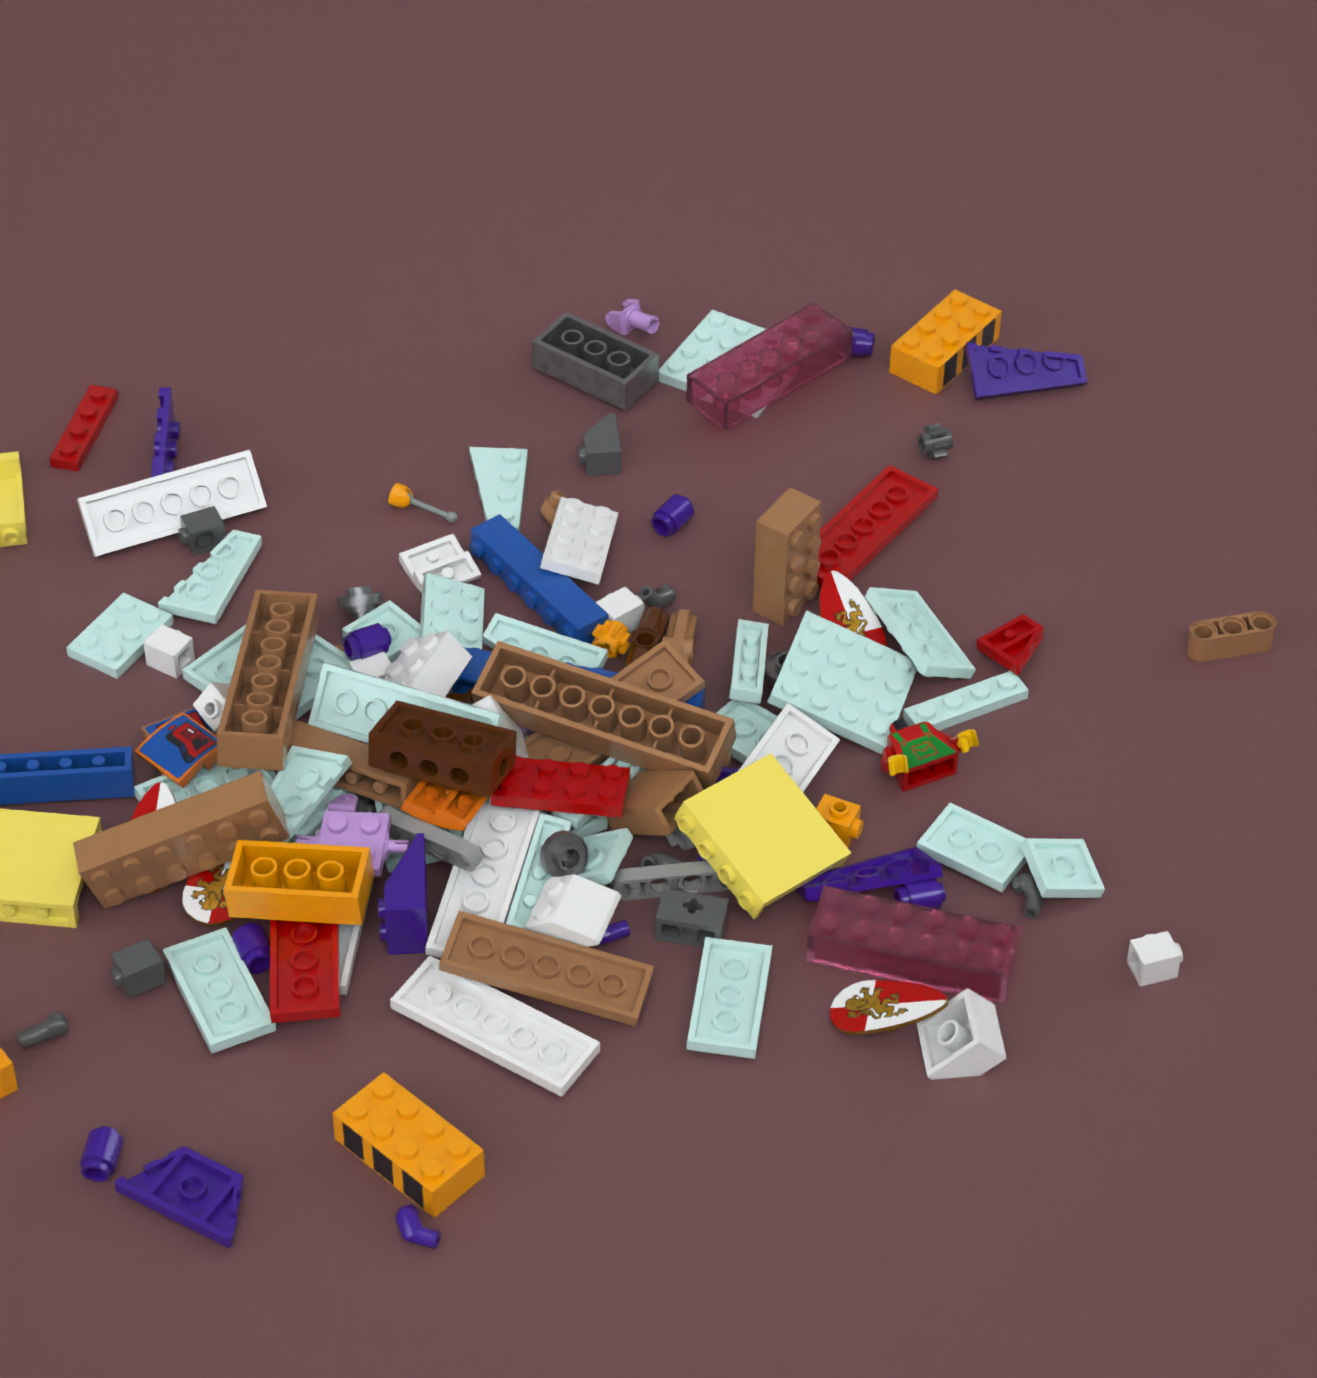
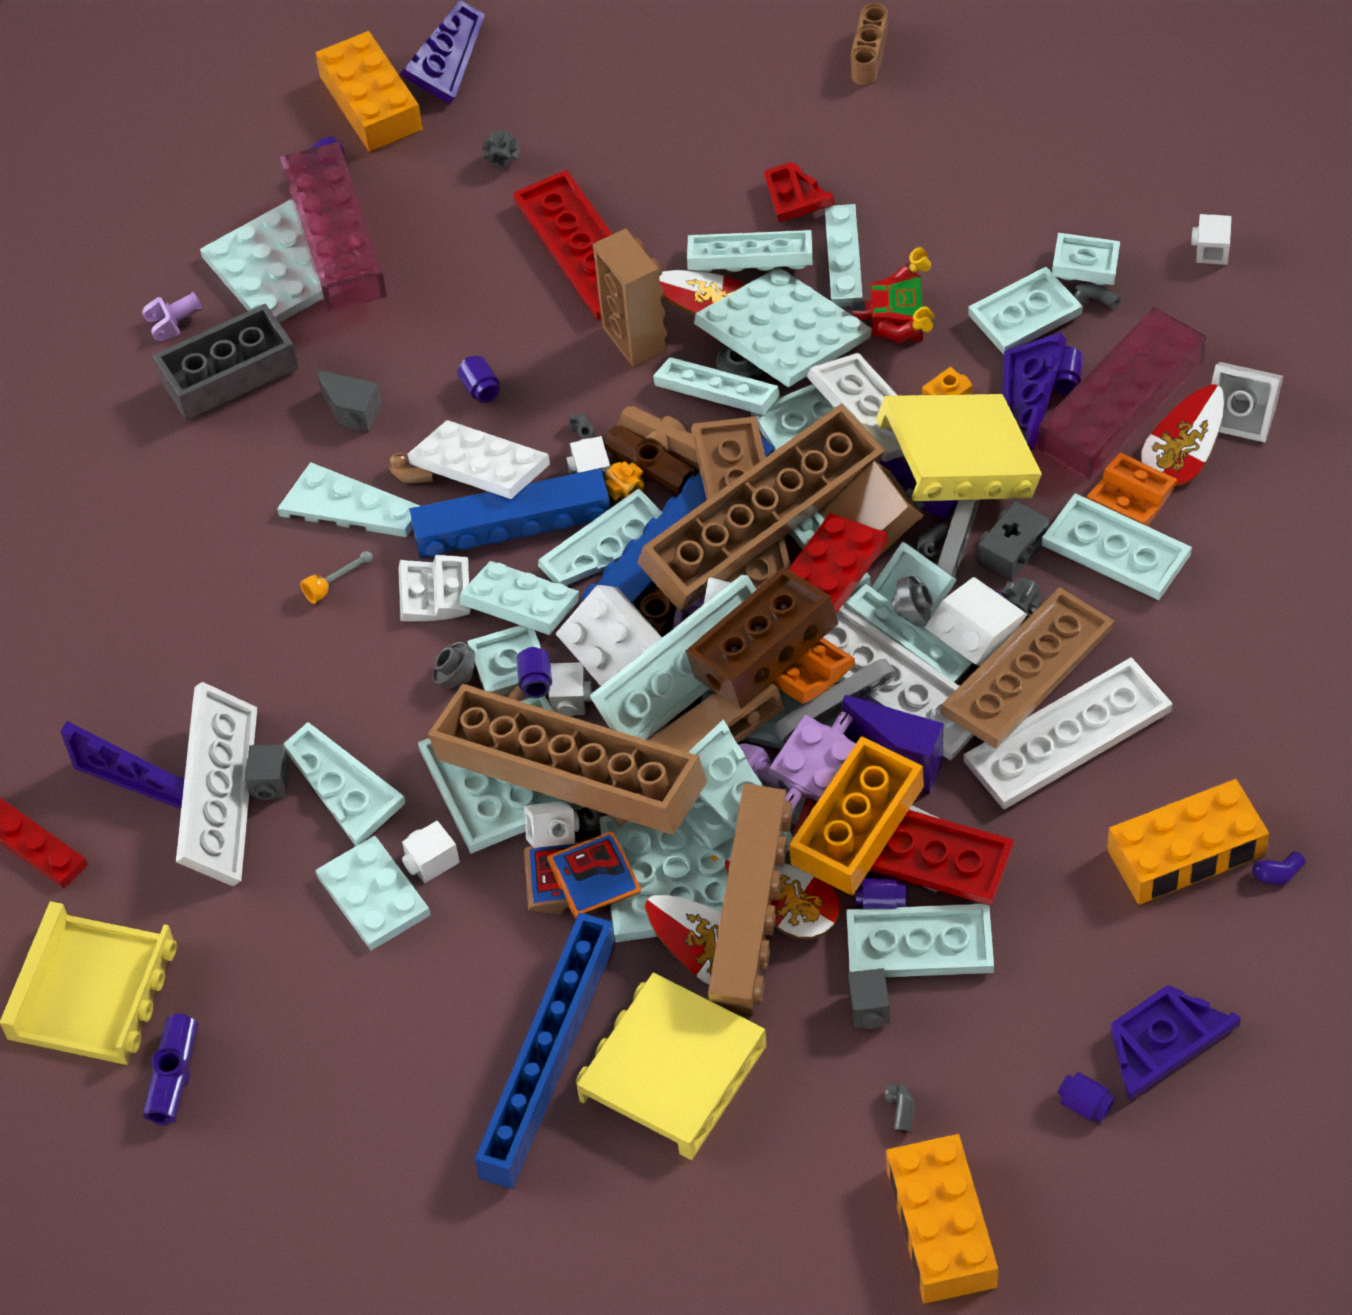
camera: 60 degrees left, 10 degrees up
(627, 942) = (1023, 594): none -> dark grey gear
(803, 991) = (1133, 489): none -> orange slope

